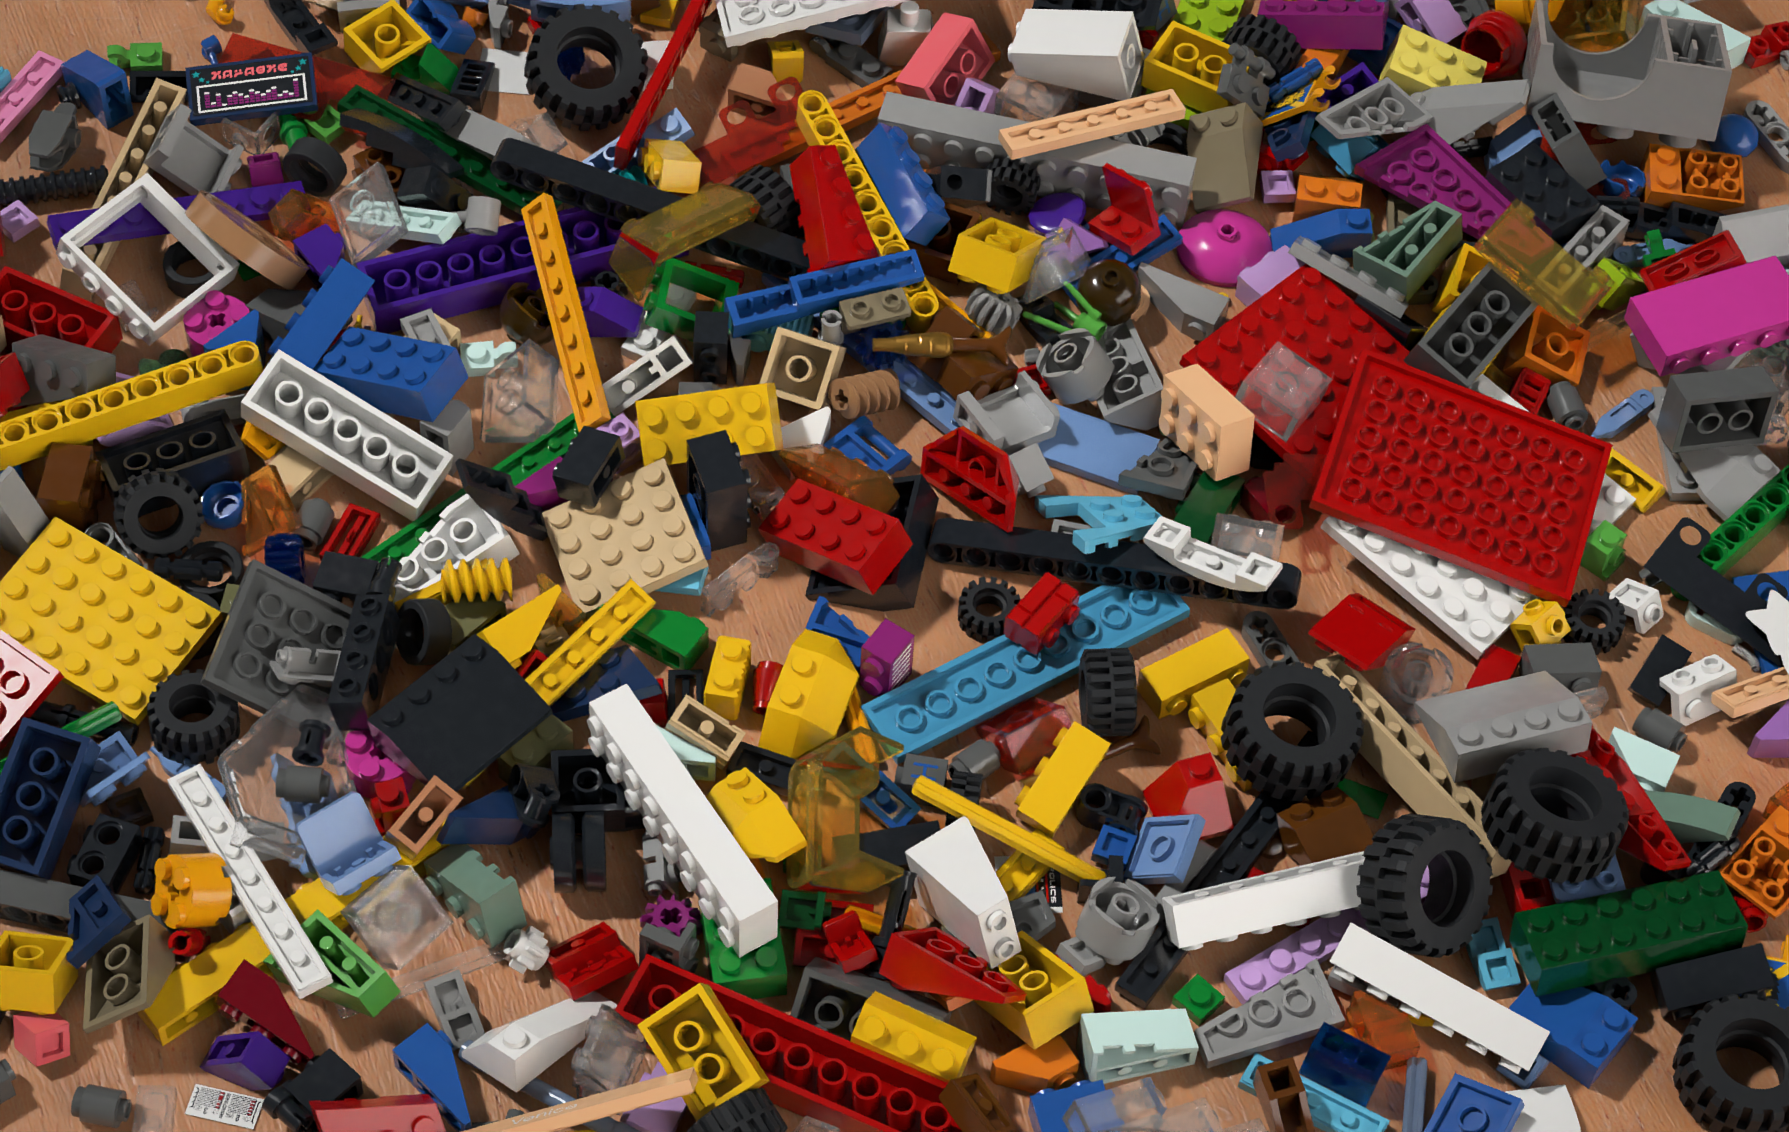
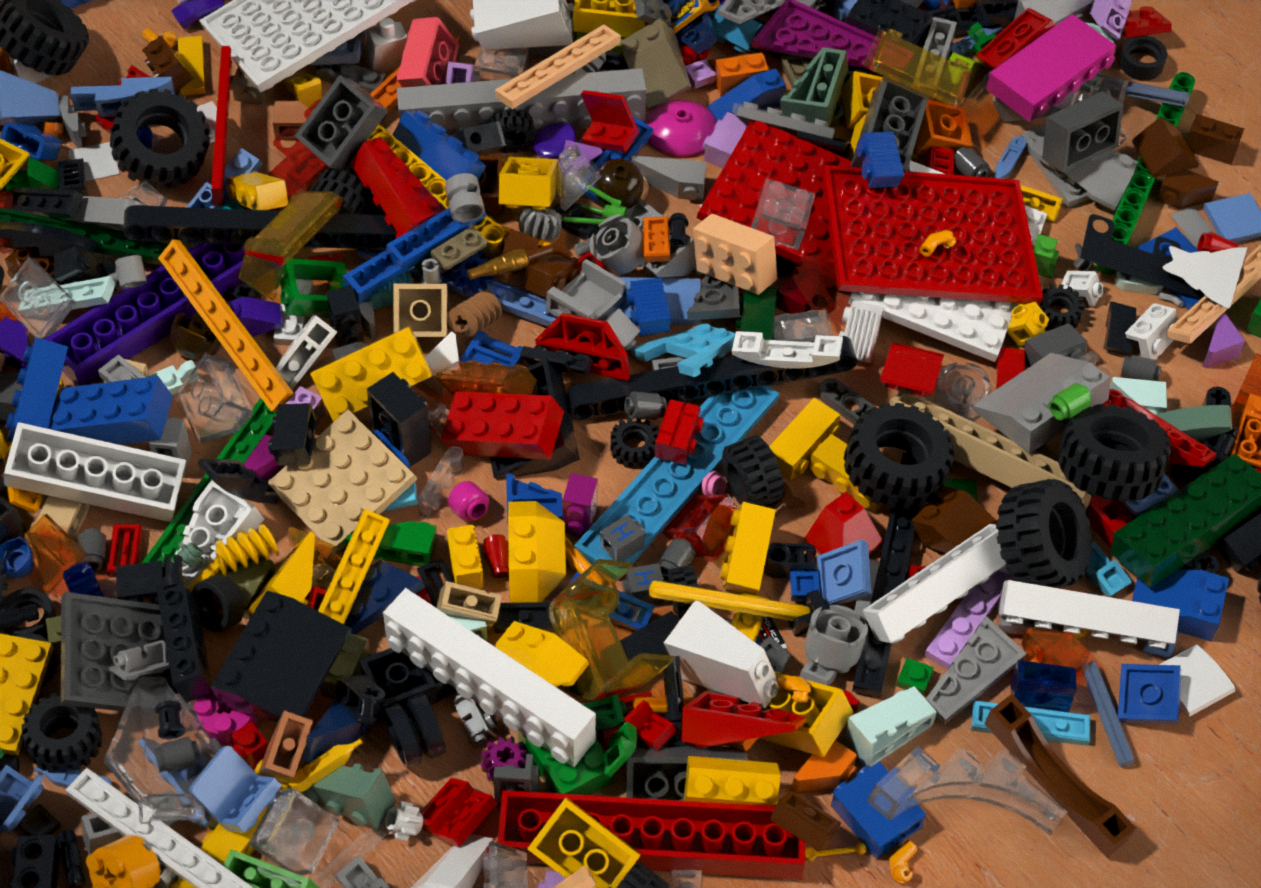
camera: 20 degrees left, 0 degrees up
(415, 566) = (191, 554): none -> sand green plate
(456, 854) = (322, 766): none -> yellow piece
(761, 612) = (468, 501): none -> dark pink head
(794, 114) = (341, 123): none -> dark grey brick
(801, 955) = (620, 748): none -> green slope
(902, 250) = (464, 197): none -> light grey wheel
(918, 717) = (622, 538): none -> dark grey brick
(941, 482) = (560, 359): none -> black hinge
(1016, 569) = (645, 405): none -> dark grey brick
(1037, 956) = (797, 684): none -> light orange arm
(1060, 690) = (713, 484): none -> bright pink plate
(1078, 452) = (649, 306): none -> blue brick
(1120, 373) = (656, 239): none -> orange plate
(1153, 363) = (678, 224): none -> black pin
(1325, 565) = (862, 328): none -> white brick
(1433, 362) = (880, 159): none -> blue brick
(1461, 483) = (933, 240): none -> light orange arm
(1521, 734) = (1070, 401): none -> bright green brick

